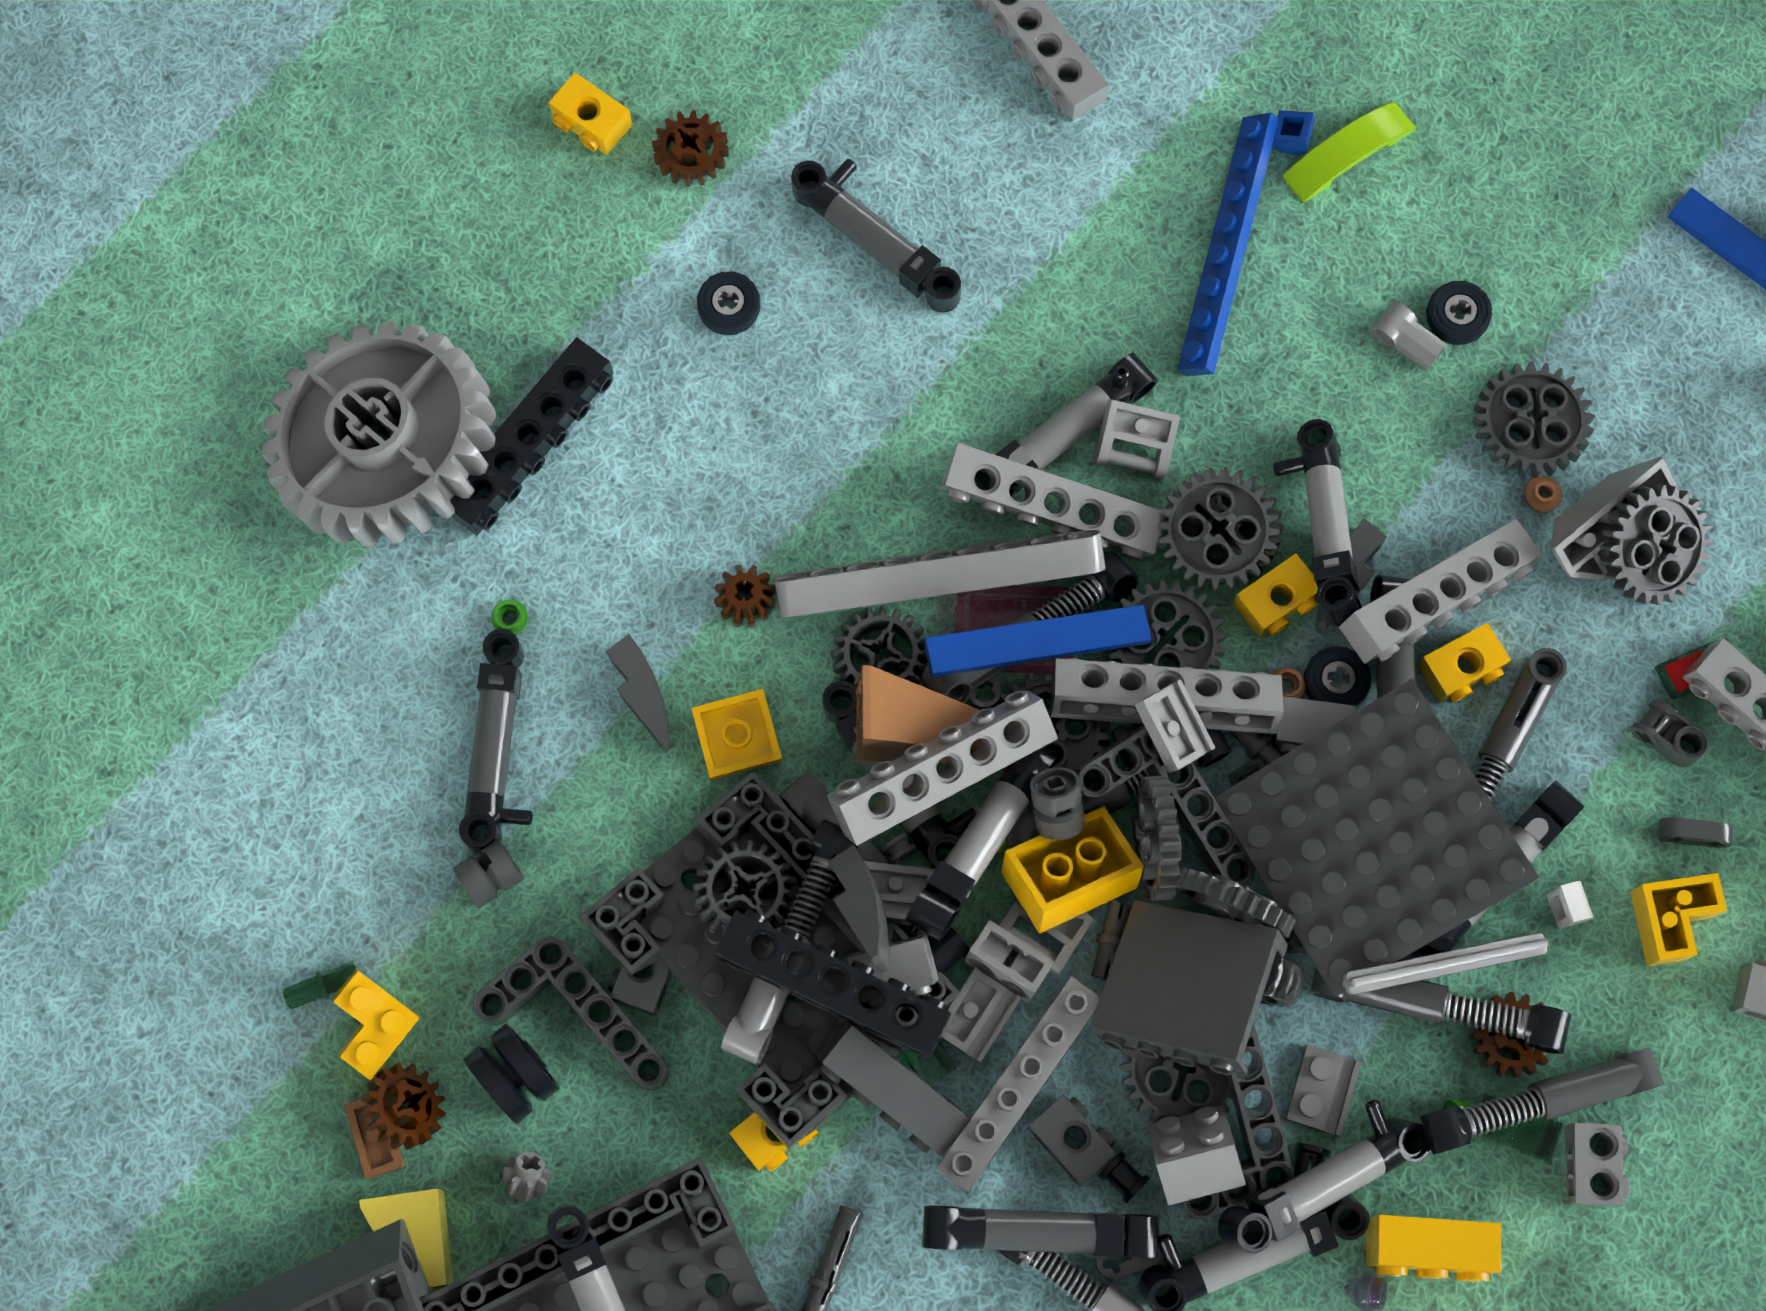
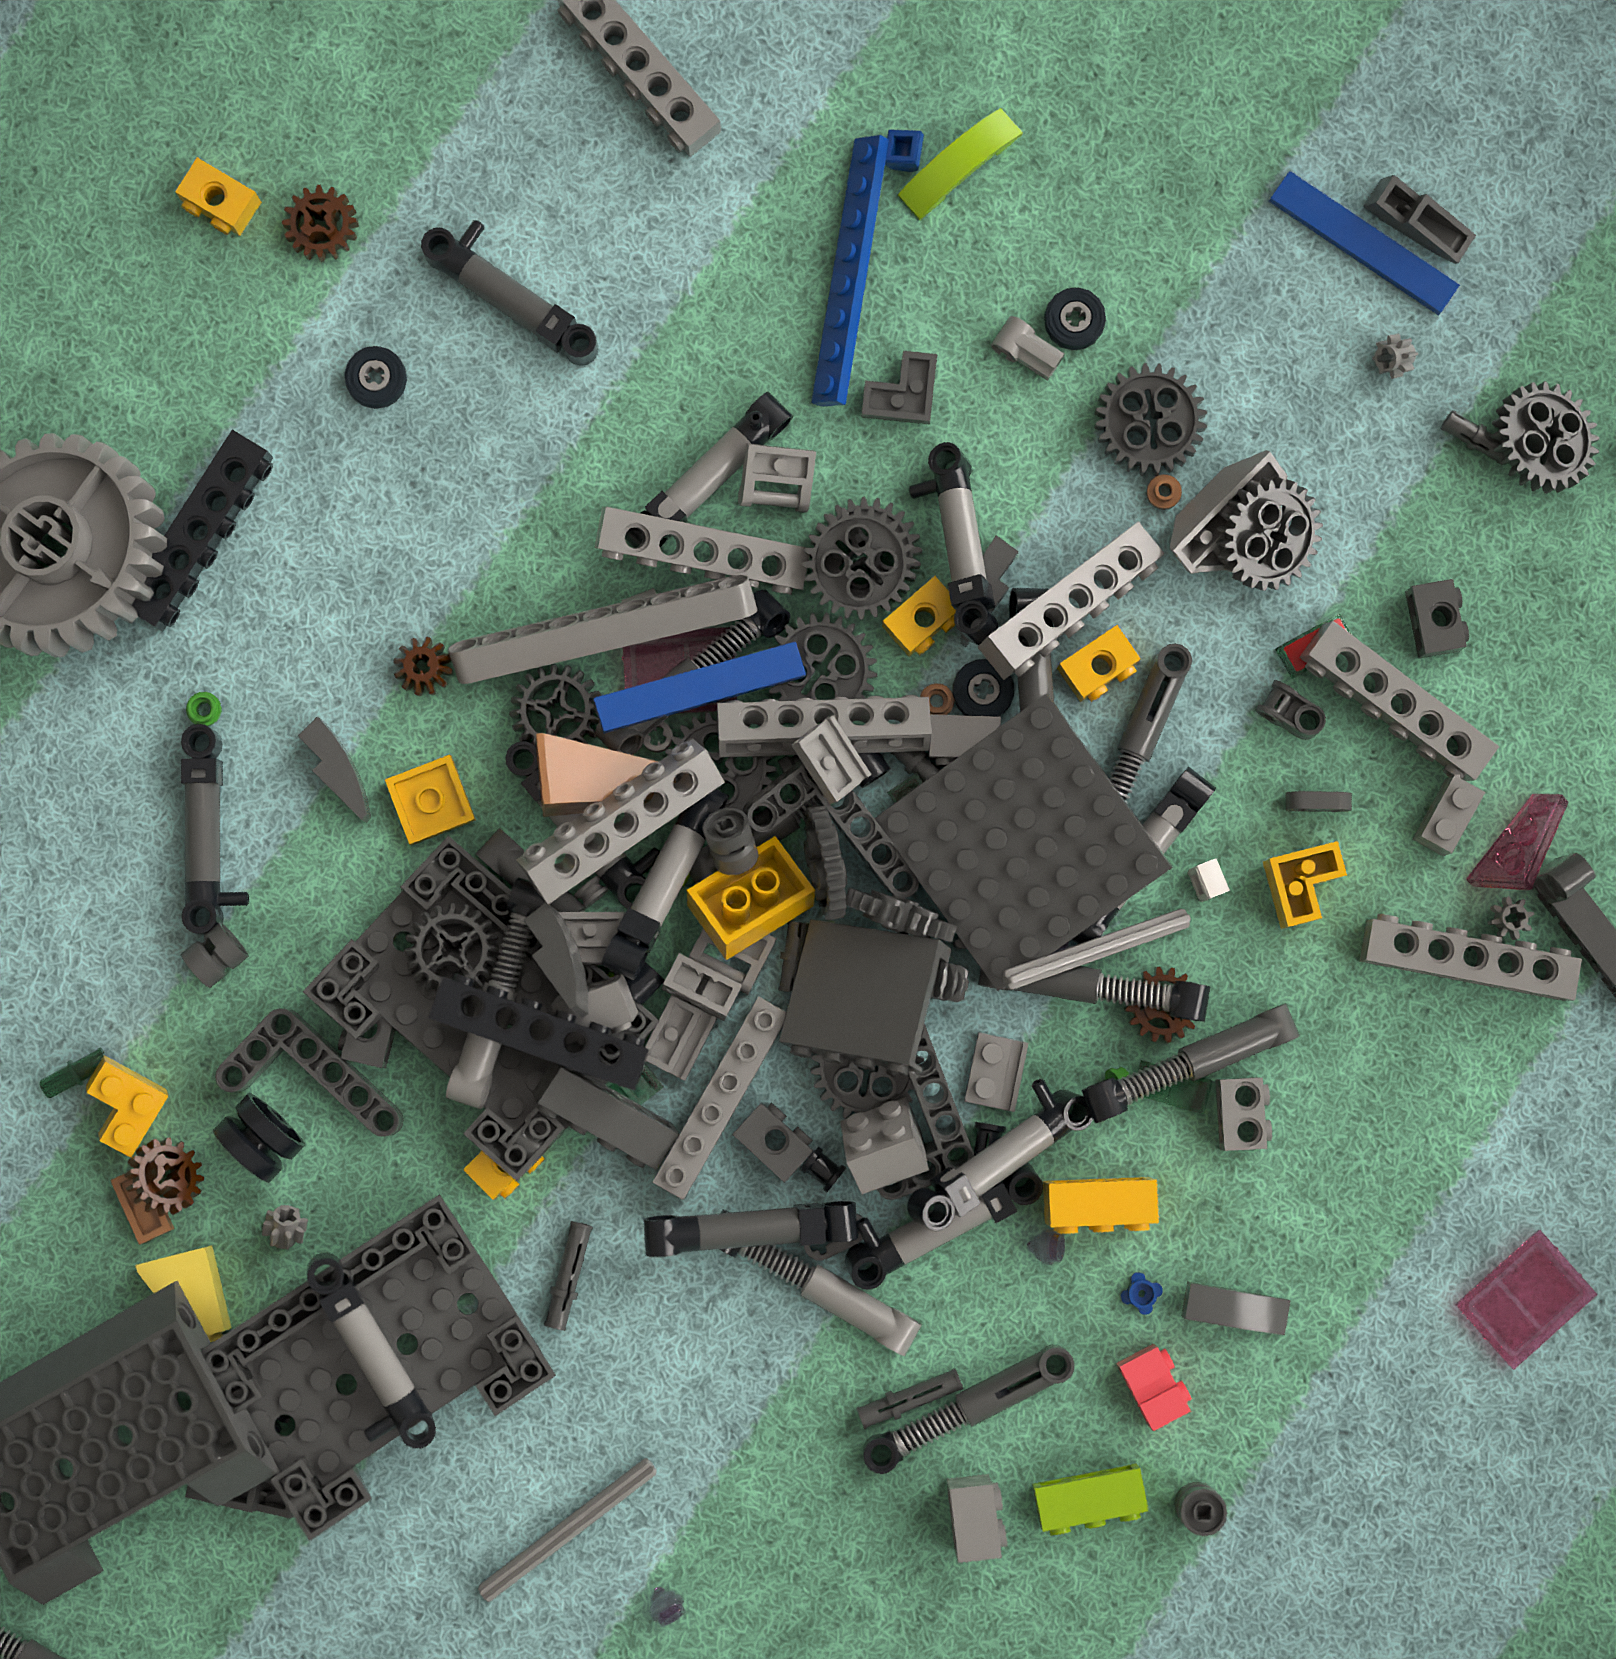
camera: 10 degrees left, 10 degrees up
(1278, 376) = (909, 399): none -> dark grey plate

